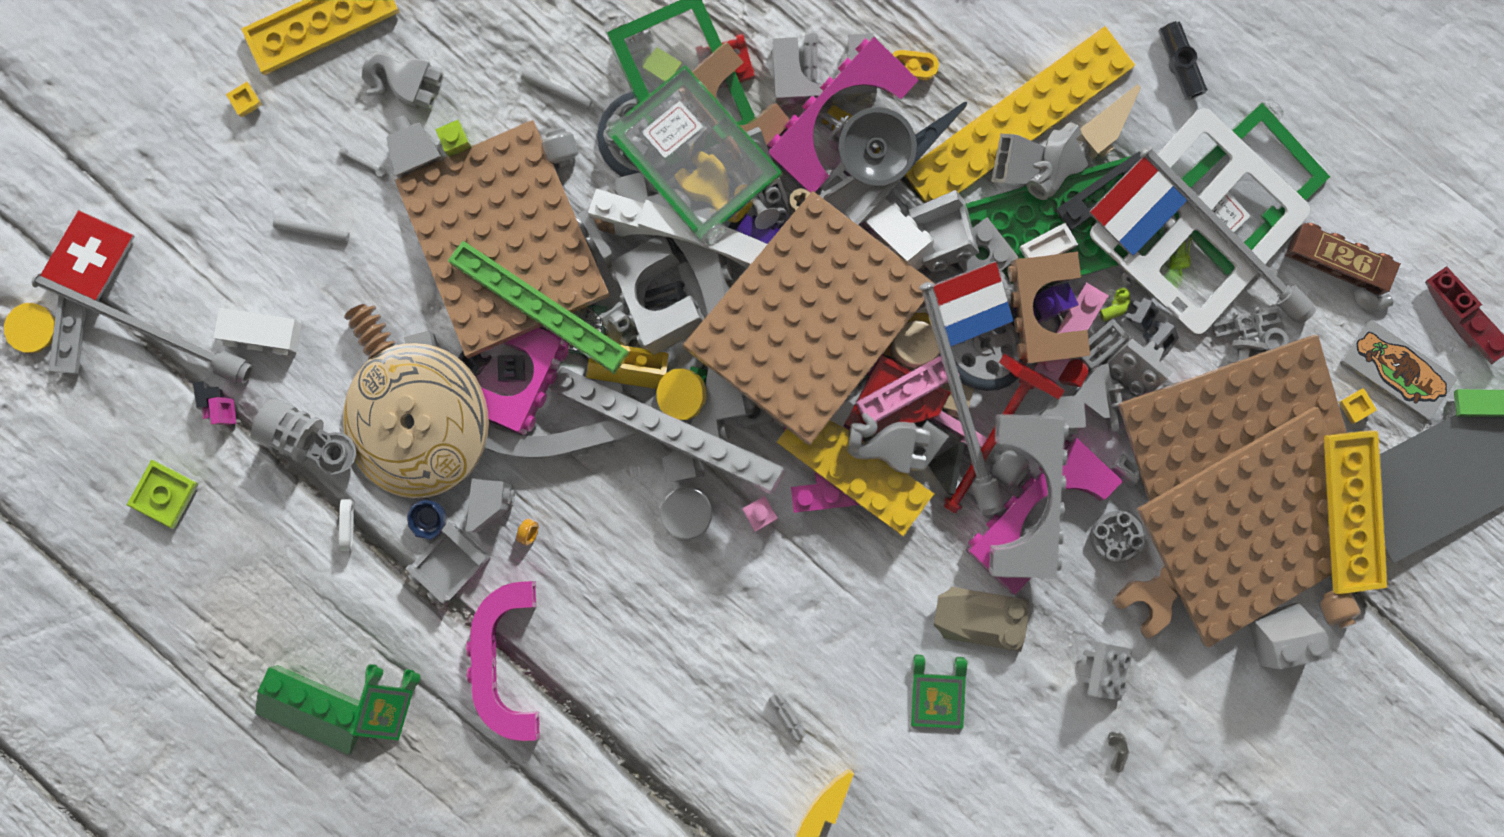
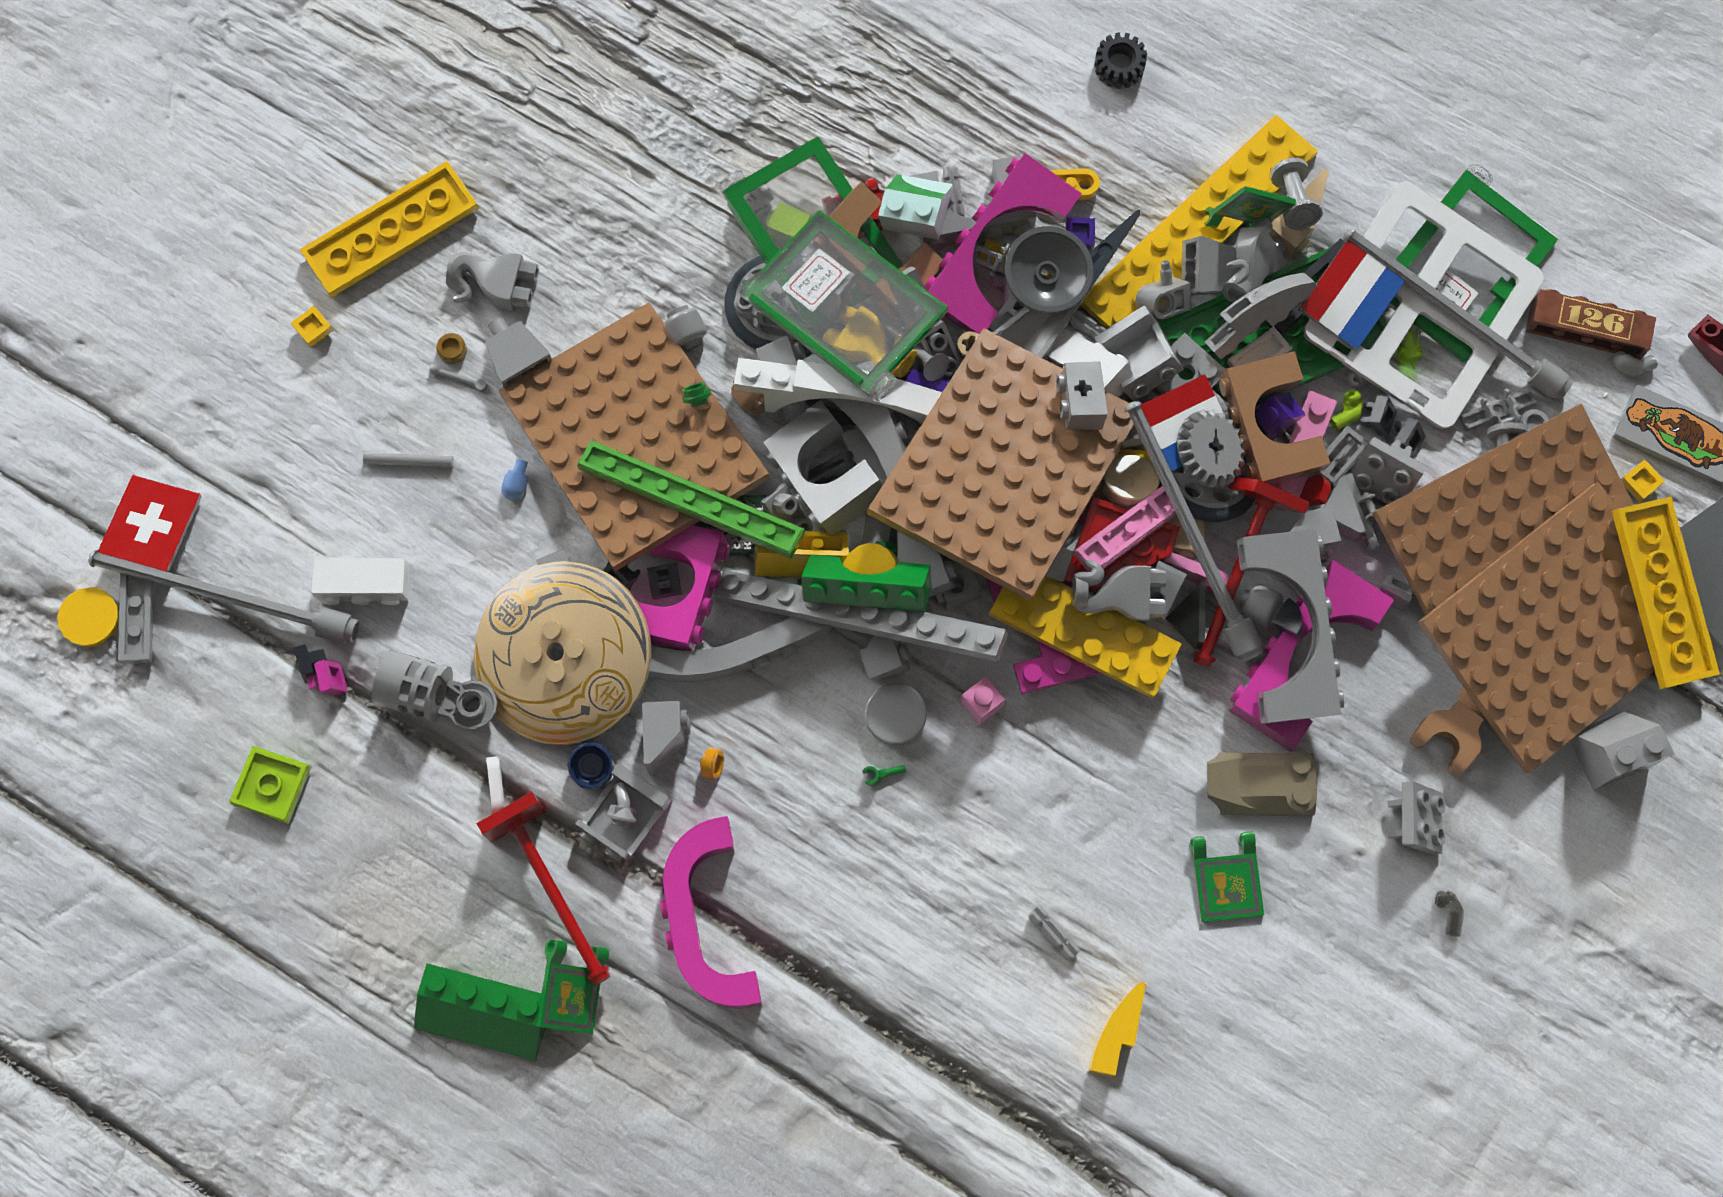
camera: 15 degrees left, 10 degrees down
(355, 559) = (513, 820): none -> red tile
(360, 135) = (451, 348): none -> pearl gold tile
(368, 330) = (490, 559): medium nougat piece -> none
(398, 263) = (515, 481): none -> medium blue cylinder
(447, 565) = (622, 813): none -> light grey plate
(453, 138) = (561, 333): lime brick -> none
(556, 89) = (670, 267): light grey bar -> none
(557, 213) = (696, 394): none -> green plate
(596, 239) = (745, 418): light grey plate -> none
(668, 561) = (884, 773): none -> green hand
(702, 415) = (900, 588): none -> green arch
(773, 68) = (915, 206): none -> light aqua slope
(892, 256) = (1082, 395): none -> light grey brick
(914, 110) = (1083, 228): none -> dark purple plate
(973, 332) = (1199, 460): none -> light grey gear
(976, 181) = (1167, 296): none -> light grey piece
(1030, 485) = (1289, 619): none -> black tile
(1059, 204) = (1268, 302): none -> light grey slope
(1063, 113) = (1248, 206): none -> green flag
(1105, 87) = (1290, 175): none -> light grey hose
(1117, 537) = (1400, 667): light grey tile -> none
(1177, 46) = (1361, 125): black piece -> none
(1339, 609) = (1671, 708): medium nougat head -> none

